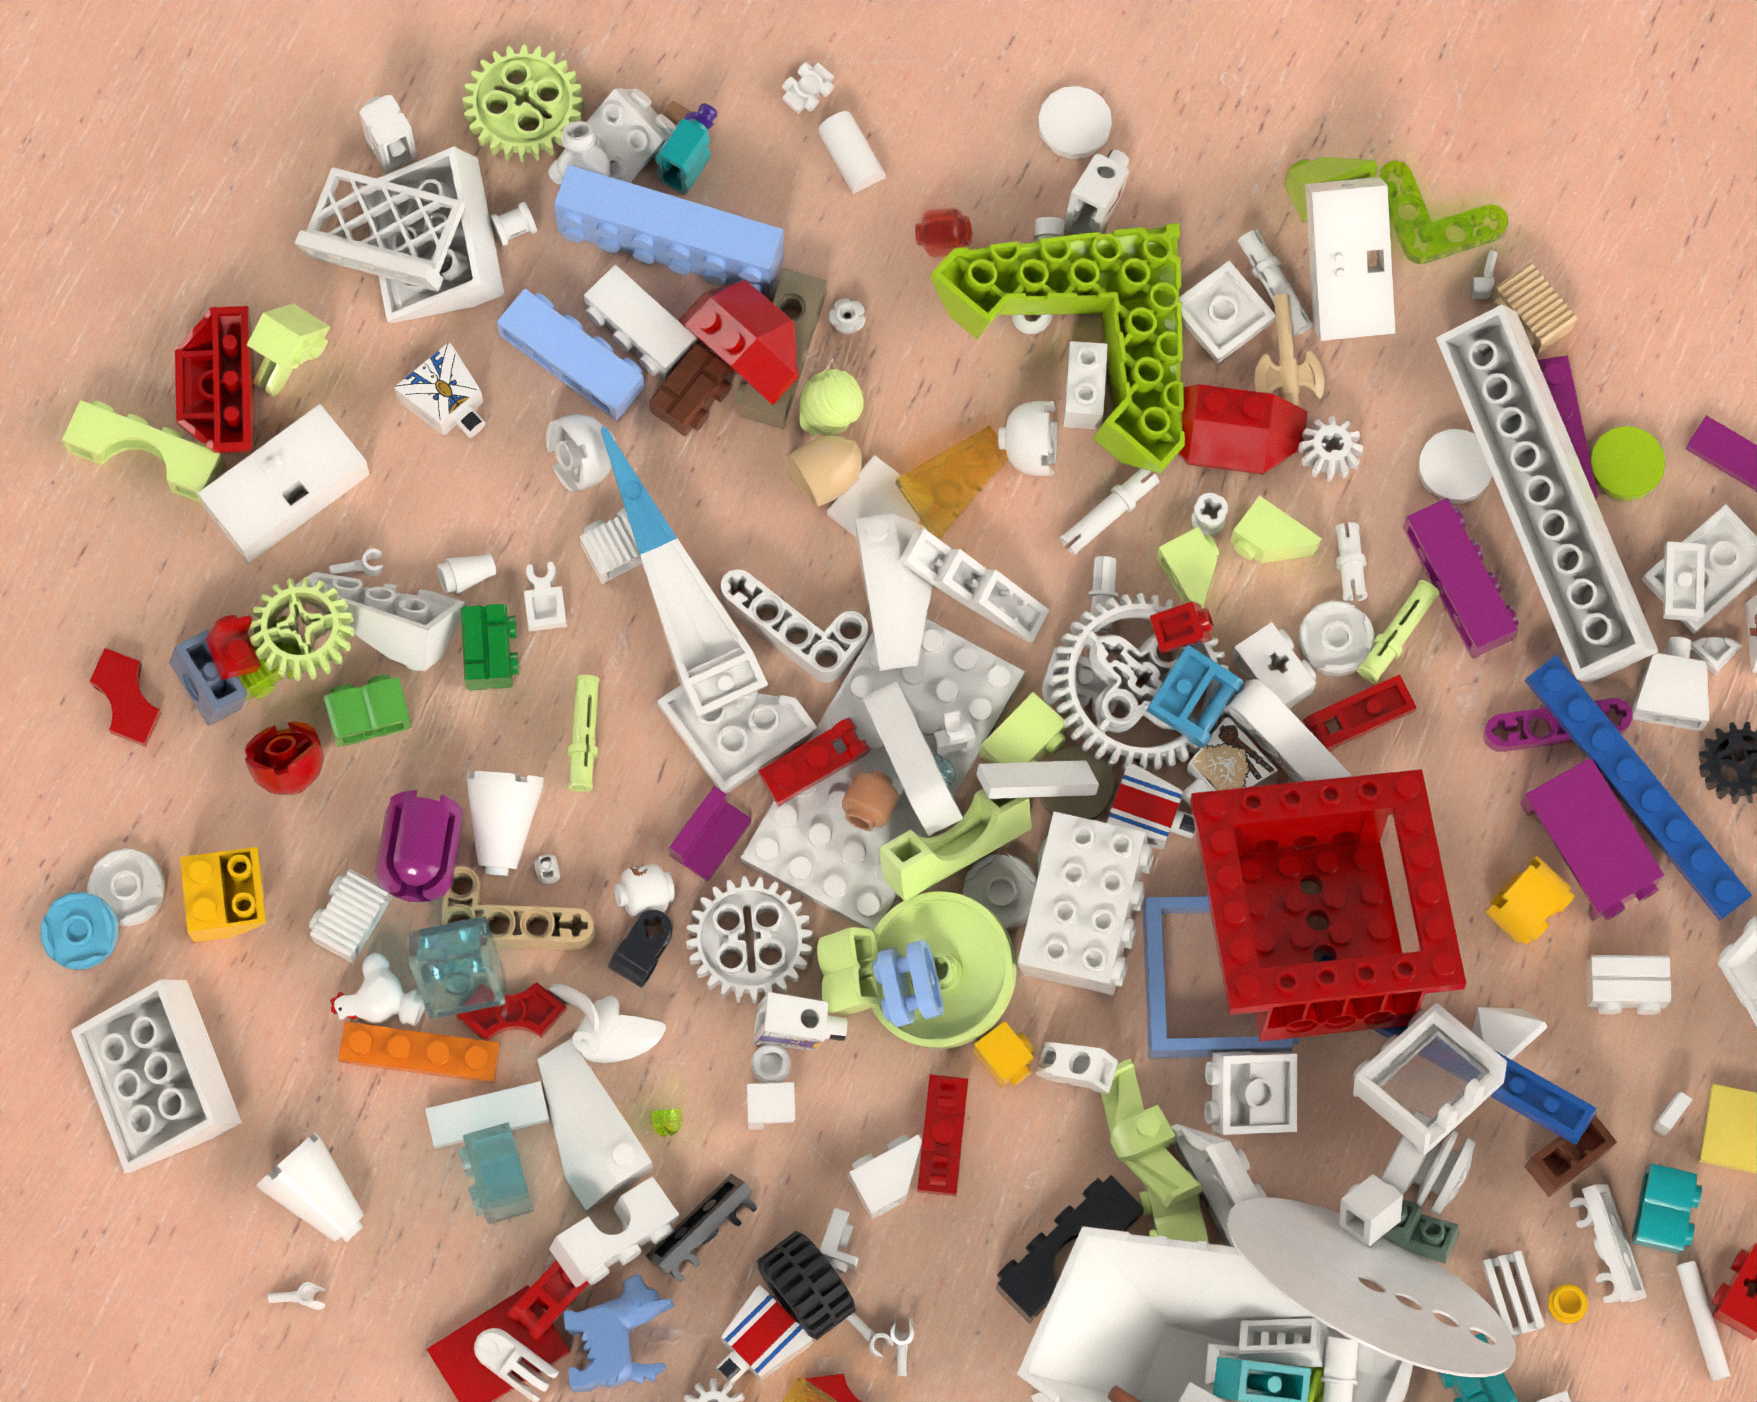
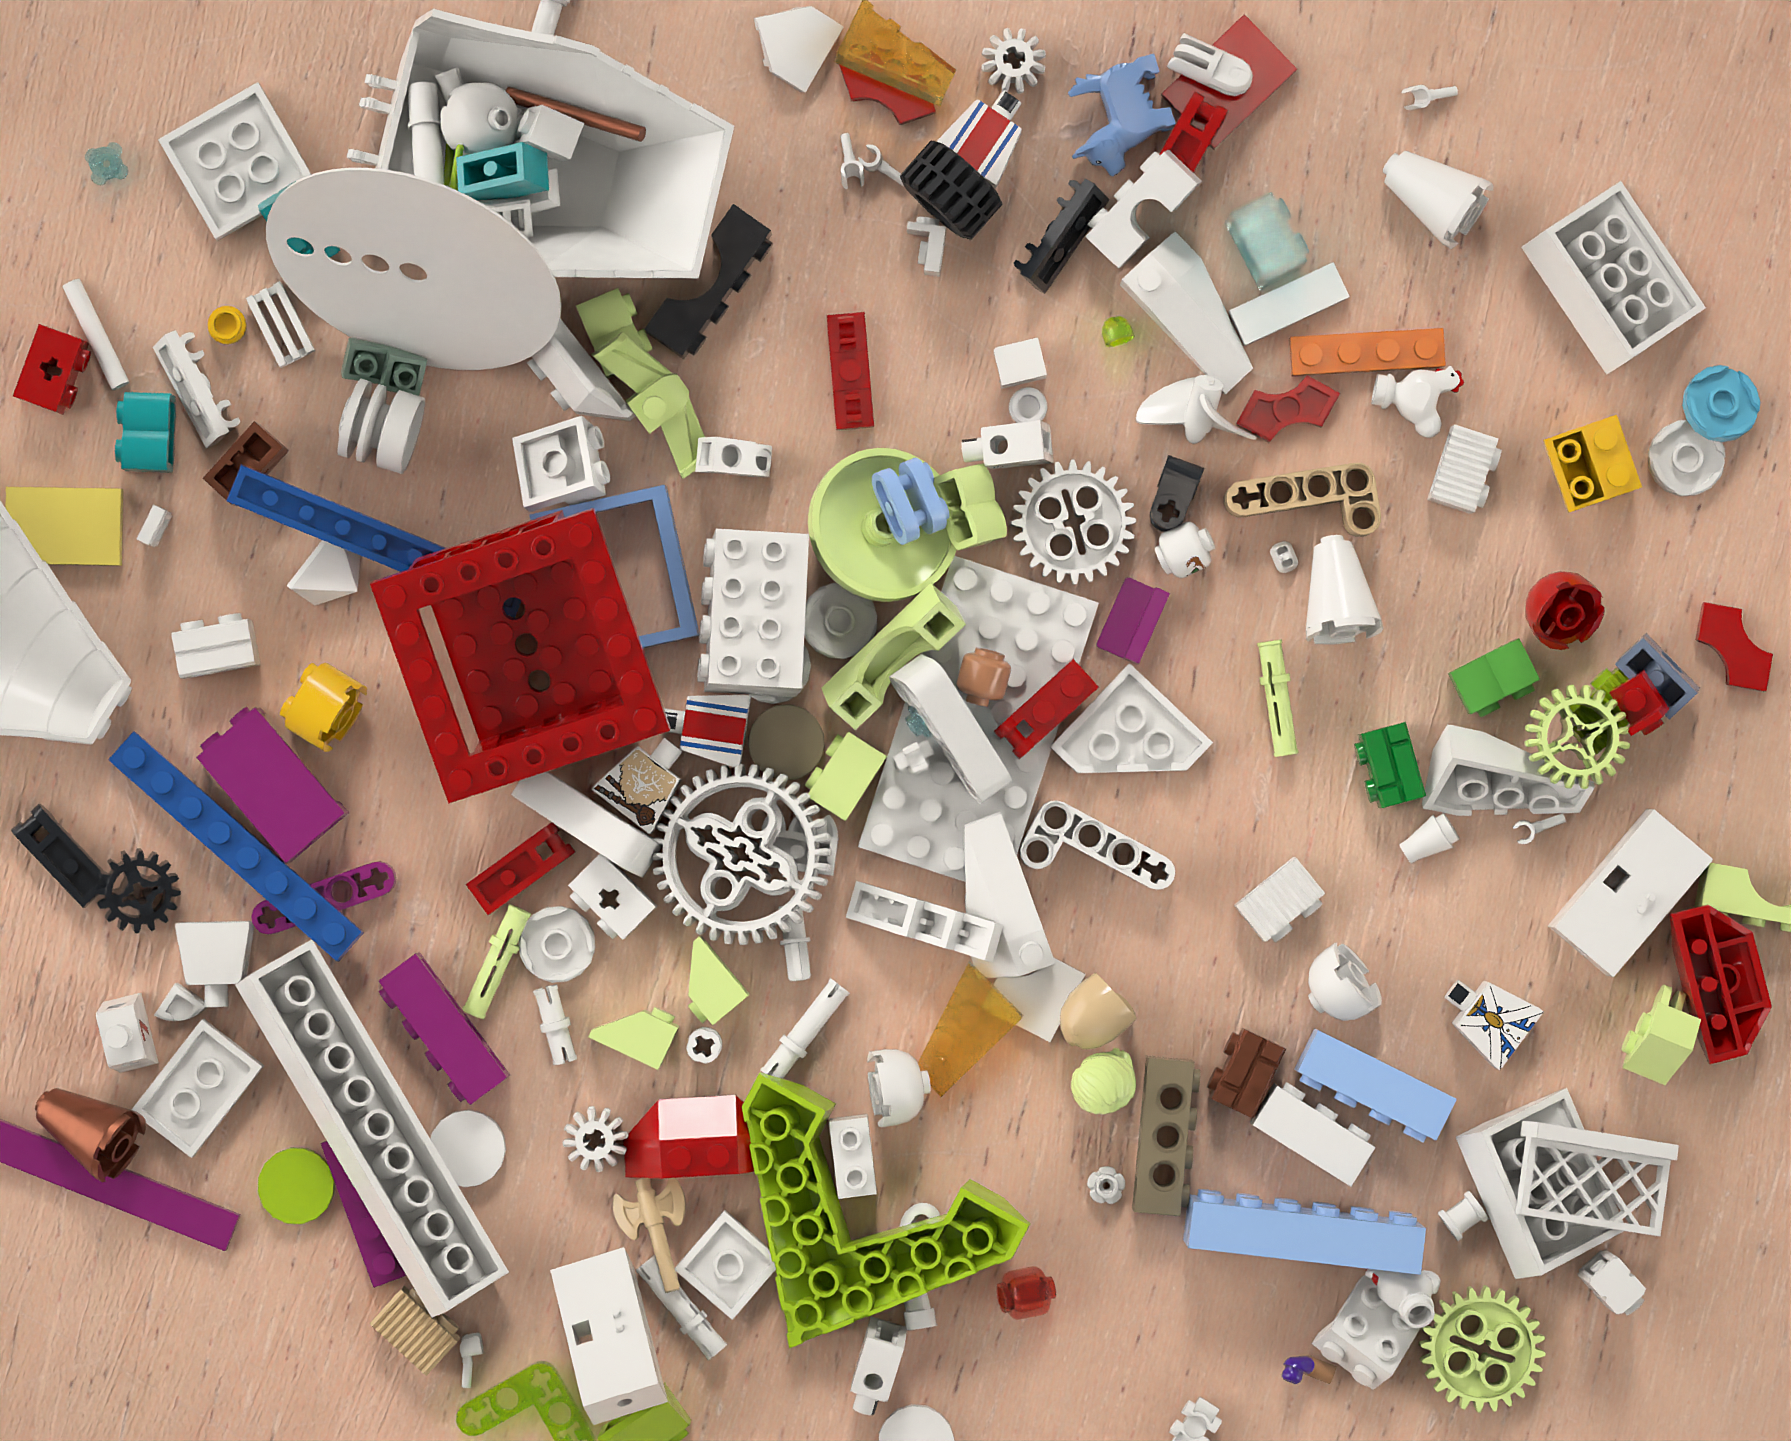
camera: 170 degrees right, 15 degrees up
(418, 847) = (1412, 540): magenta cylinder -> none
(457, 967) = (1349, 430): clear light blue brick -> none
(546, 603) = (1343, 821): white plate -> none
(683, 155) = (1305, 1319): teal brick -> none
(703, 640) = (1178, 806): white plate -> none
(747, 336) = (1204, 1132): red wedge -> none
(850, 151) = (1137, 1364): white brick -> none
(886, 1180) = (894, 314): white slope -> none
(1005, 1055) = (804, 457): yellow brick -> none
(1037, 779) = (824, 729): white tile -> none
(1182, 626) = (709, 909): red bracket -> none
(1183, 690) = (696, 848): dark azure plate -> none
(1370, 1209) = (427, 366): white brick -> none
(1429, 1077) = (392, 497): window -> none
(1684, 581) = (220, 1063): white plate -> none

